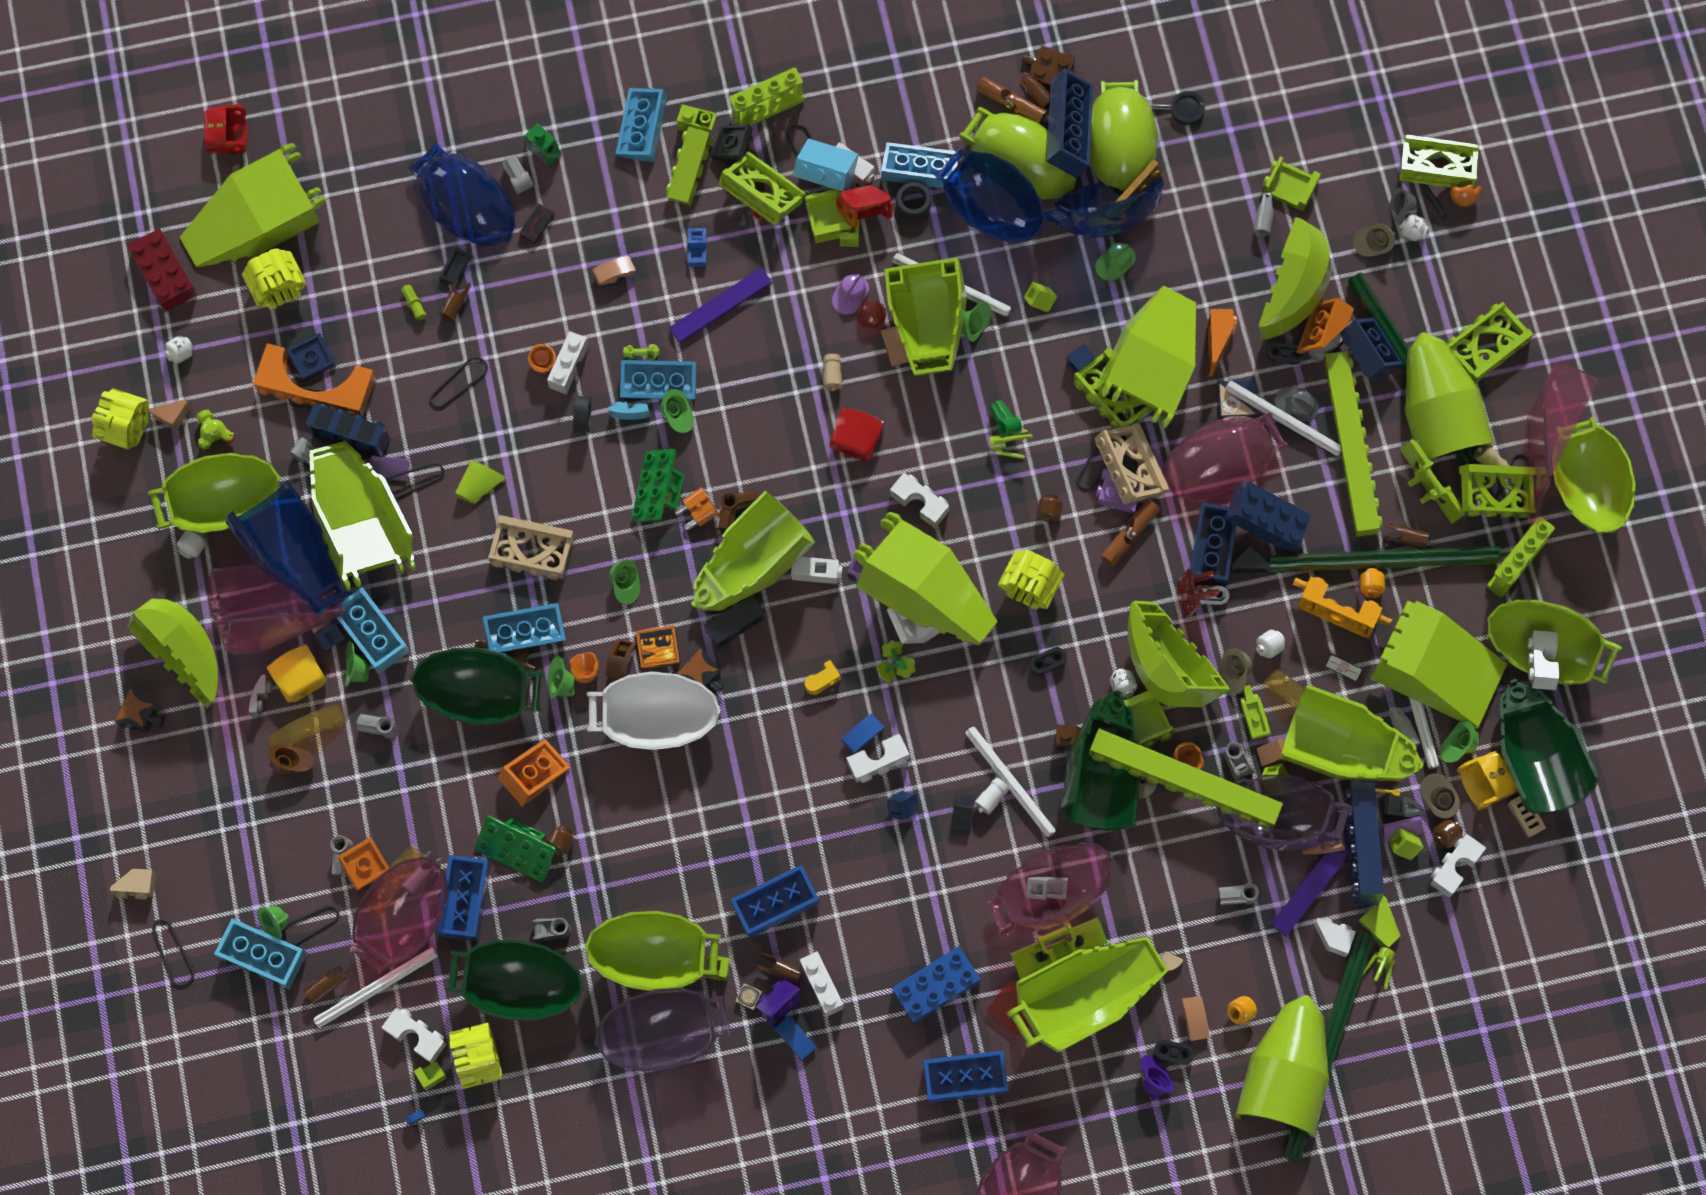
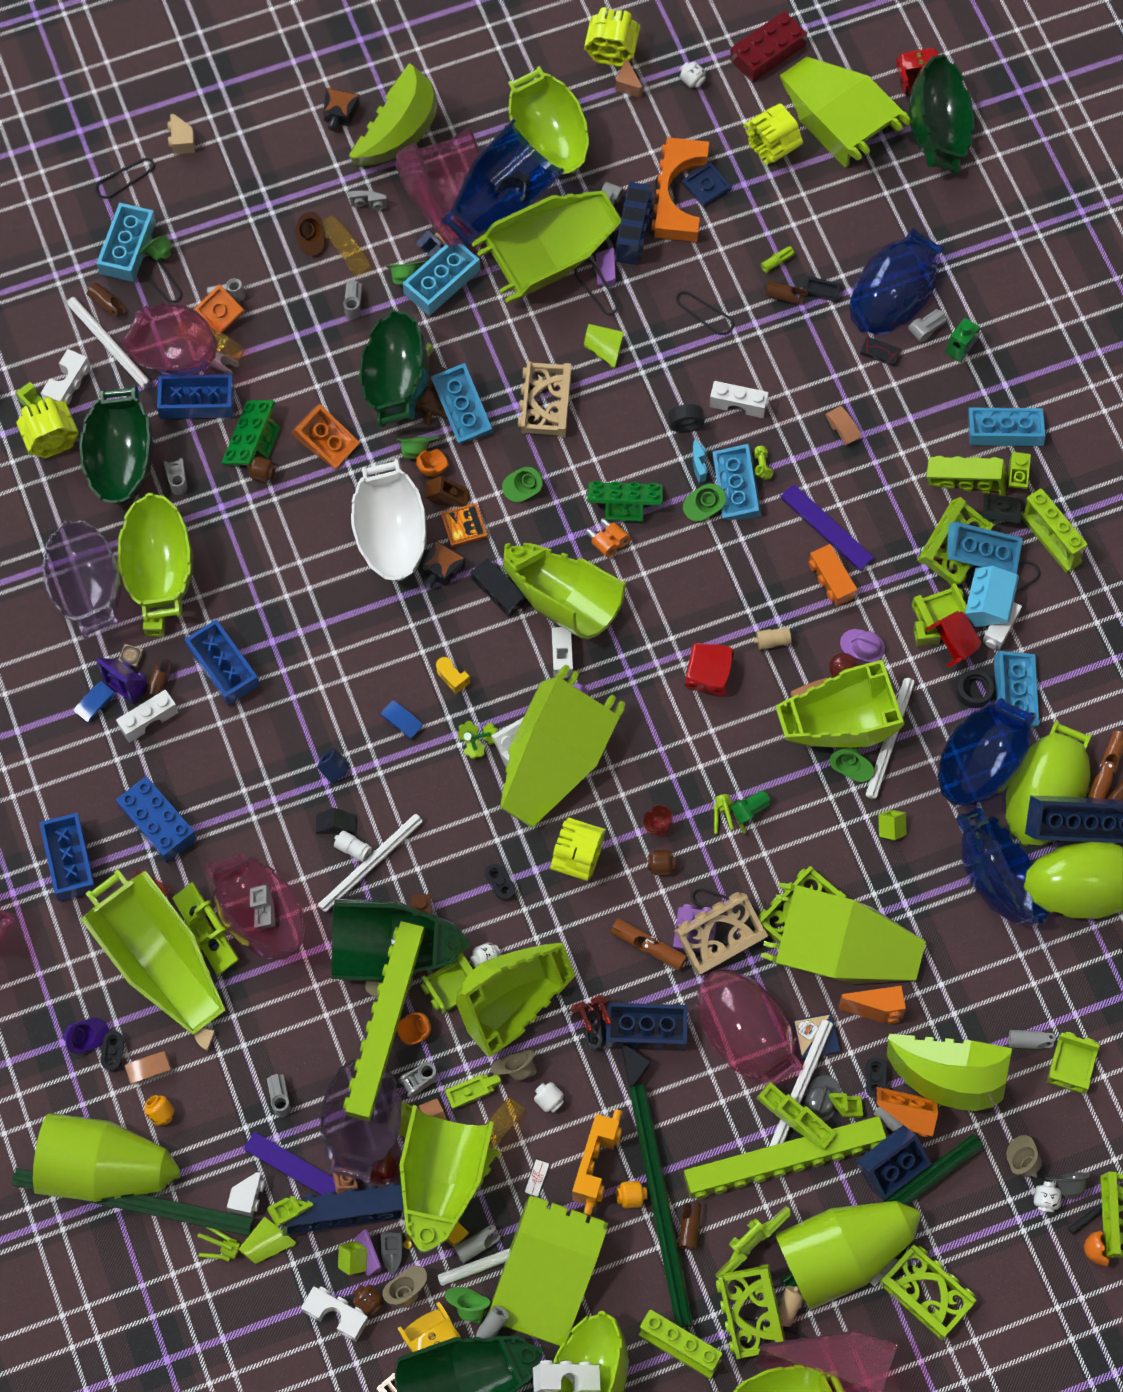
camera: 80 degrees right, 5 degrees down
(191, 544) = (501, 118): white head -> none
(212, 430) = (618, 116): lime animal -> none
(279, 532) = (515, 179): none -> black helmet
(288, 116) = (941, 114): none -> dark green windscreen
(297, 673) = (392, 225): yellow piece -> none
(542, 358) = (737, 374): orange hair -> none
(697, 247) = (885, 497): blue slope -> none
(728, 514) = (622, 573): reddish brown piece -> none
(774, 163) = (983, 547): none -> dark azure slope
(775, 307) = (832, 575): none -> orange brick
(864, 768) = (384, 750): white arch -> none
(908, 488) = (644, 752): white arch -> none
(1007, 505) = (658, 820): none -> clear red hair
(1080, 358) = (830, 870): dark blue panel -> none
(1115, 261) = (949, 896): bright green piece -> none
(1143, 181) = (1033, 901): pearl gold plate -> none
(1268, 517) = (682, 1074): dark blue brick -> none
(1309, 380) = (847, 1105): none -> lime slope
(1318, 424) = (796, 1116): none -> lime slope
(1369, 886) = (287, 1209): none -> lime slope
(1487, 721) = (493, 1322): none -> light grey piece

